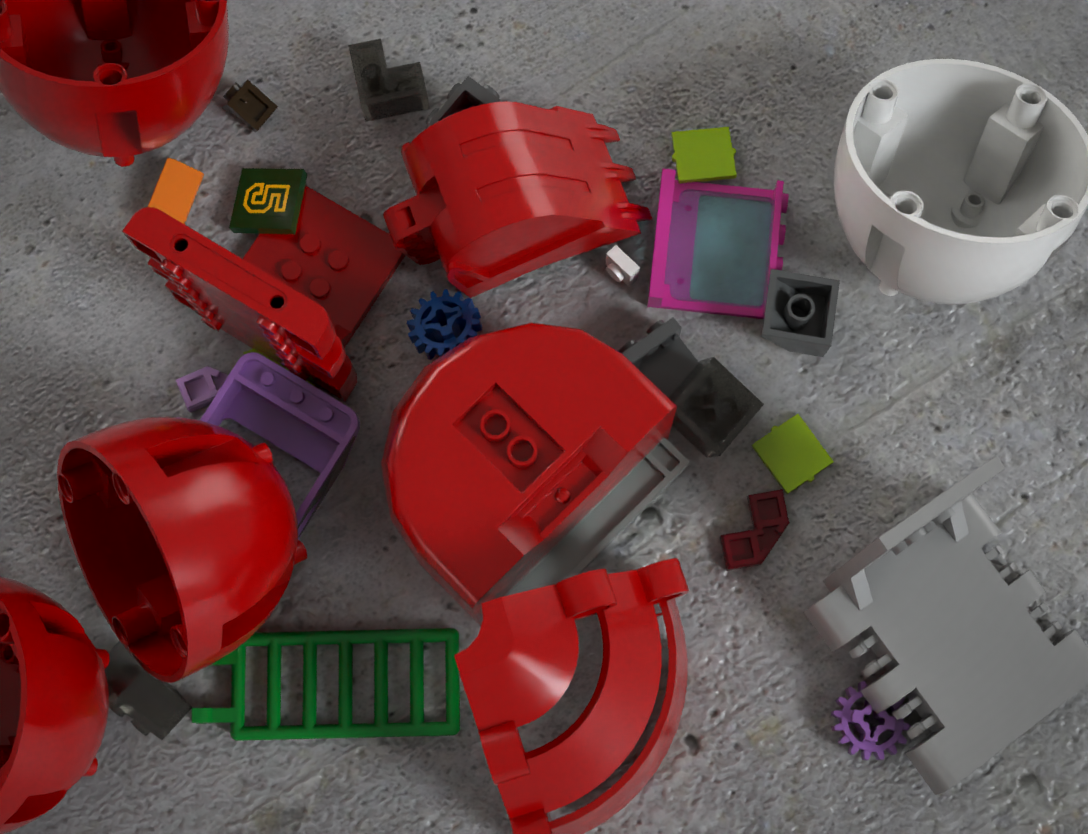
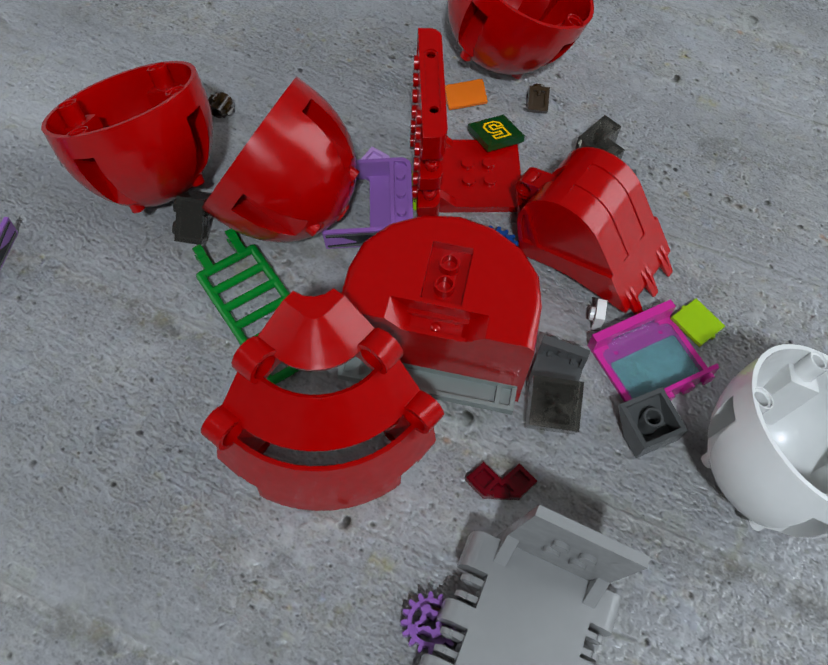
camera: 50 degrees right, 15 degrees down
(792, 453) = (563, 476): lime piece -> none

